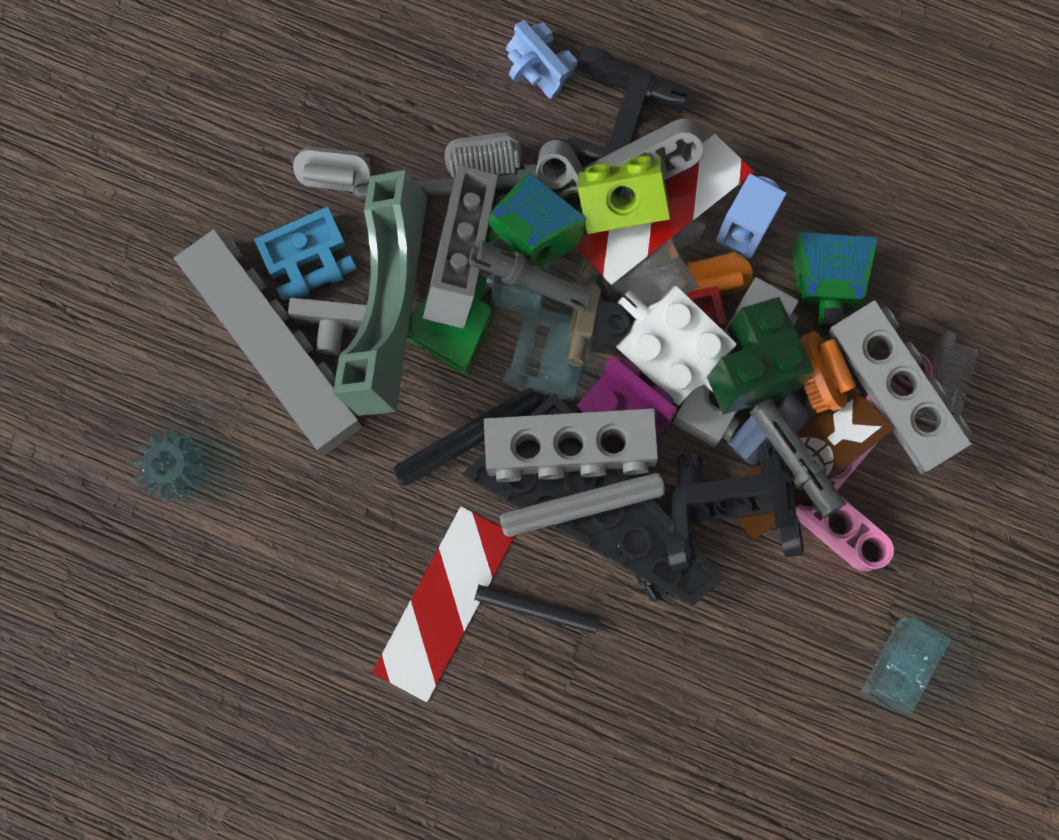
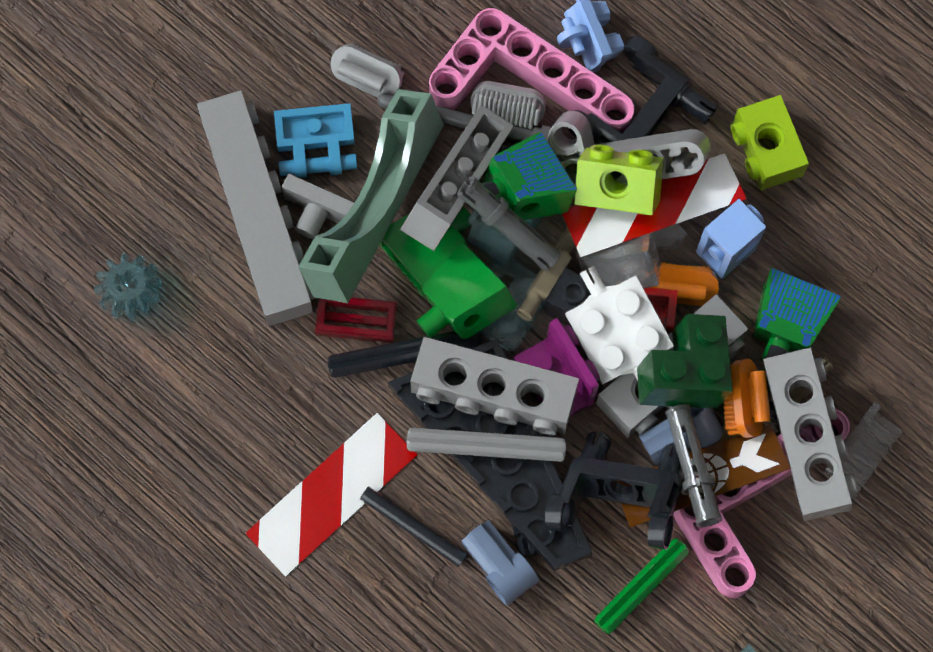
camera: 15 degrees right, 5 degrees down
(412, 434) = (357, 333): none -> dark red tile
(491, 114) = (529, 69): none -> bright pink beam
(508, 362) = (464, 296): none -> green torso
(642, 621) = (506, 572): none -> sand blue piece
(749, 88) = (770, 121): none -> lime brick
(778, 596) = (641, 586): none -> green axle

